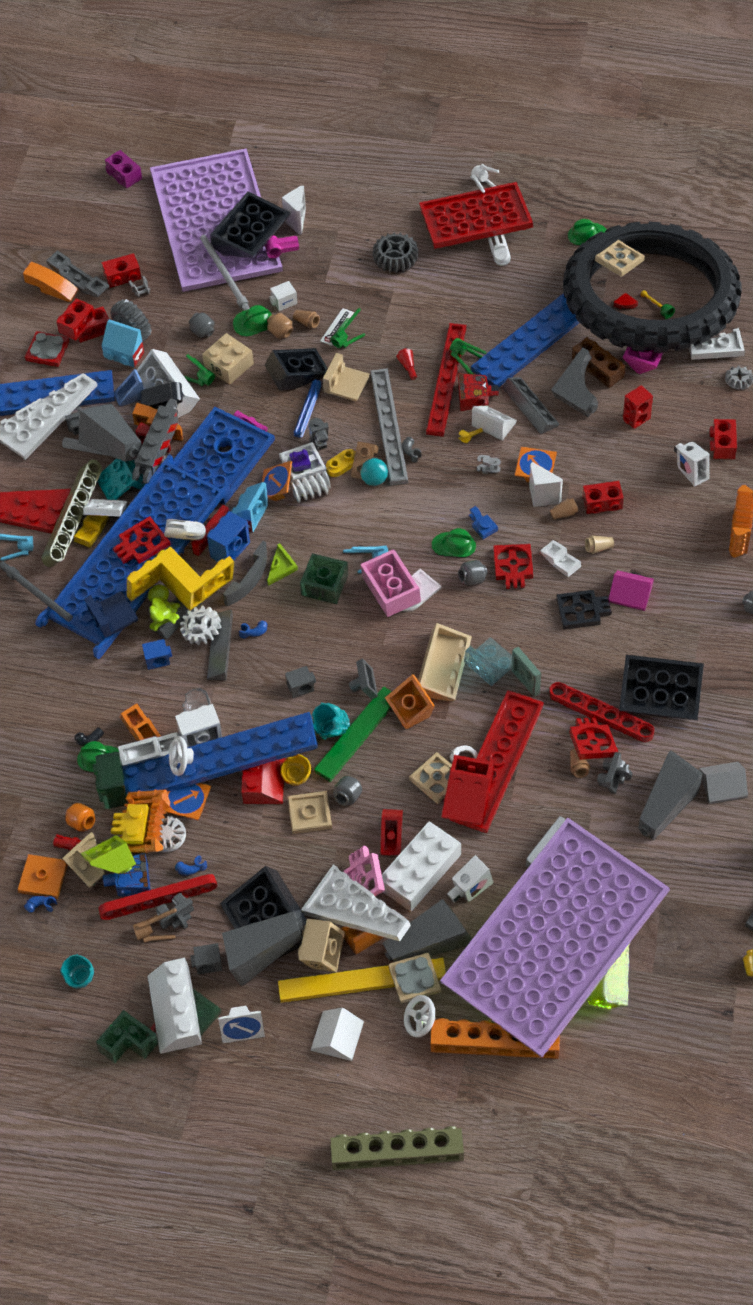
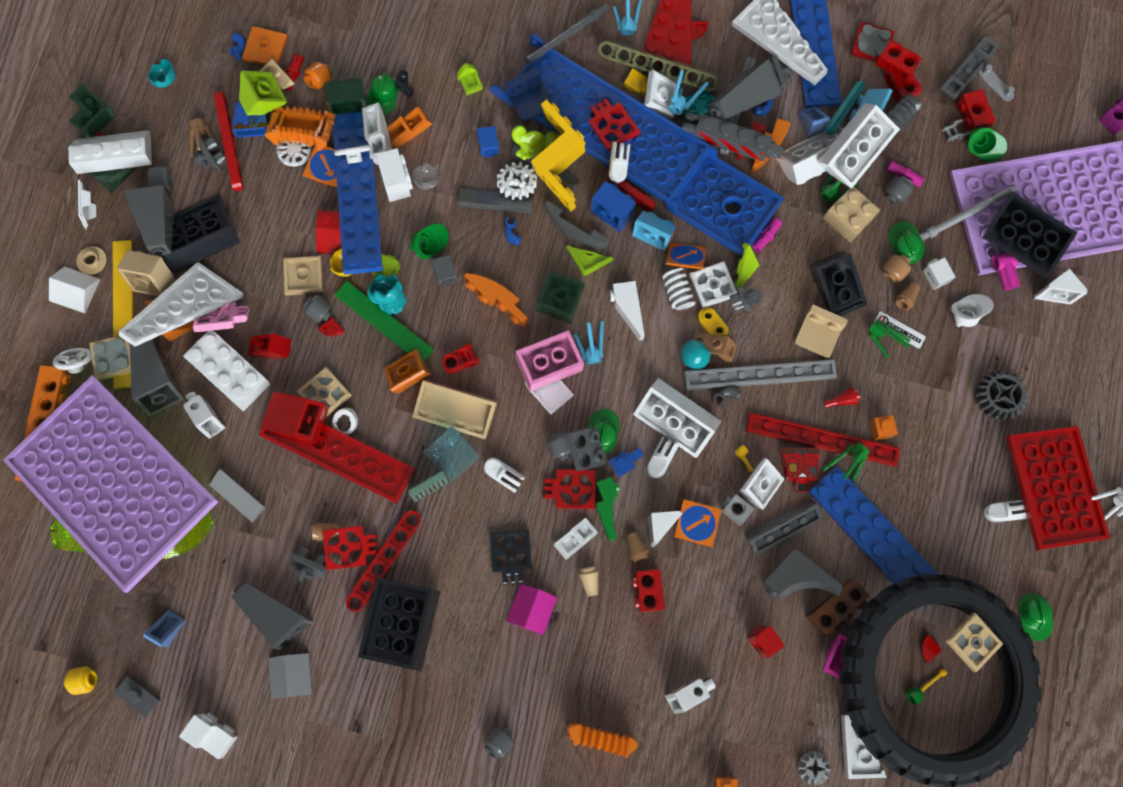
camera: 85 degrees right, 20 degrees up
(28, 485) = (698, 29): none -> red tile
(49, 282) = (959, 42): orange slope -> none
(85, 678) = (469, 79): none -> lime tile
(92, 258) = (996, 83): none -> light grey piece
(117, 364) = (845, 107): none -> teal axle
(118, 490) = (678, 101): none -> medium azure plant
(131, 824) = (294, 114): yellow hinge -> none
(154, 262) = (987, 144): none -> green piece
(161, 394) = (796, 145): black beam -> none
(165, 343) = (858, 144): none -> white slope
(183, 322) = (900, 170): none -> dark pink pin
(185, 870) = (254, 167): blue arm -> none
(269, 699) = (429, 241): none -> green piece
(284, 436) = (746, 266): none -> lime tile
(300, 460) = (710, 280): dark purple tile -> none
(302, 1030) = (98, 264): none -> tan piece
(307, 408) = (784, 293): blue axle -> none
(318, 271) = (971, 309): none -> white piece
(322, 635) = (492, 292): none -> orange slope
(328, 526) = (627, 304): none -> white slope
(365, 681) = (438, 331): dark grey tile -> none
(366, 780) = (331, 328): none -> red tile
(393, 662) = (461, 359): none -> red piece
(433, 333) = (882, 427): none -> orange brick
(437, 483) = (677, 417): none -> white slope
(475, 549) = (586, 448): none -> dark grey brick
(476, 494) = (659, 461): none -> white arm
(491, 466) = (699, 473): light grey piece -> none
(504, 619) = (498, 469): none -> white arm
(520, 435) = (746, 509): none -> light grey brick
(531, 534) = (608, 492): none -> green slope
(695, 893) = (164, 629): none -> medium blue slope
(724, 438) = (722, 741): red brick -> none

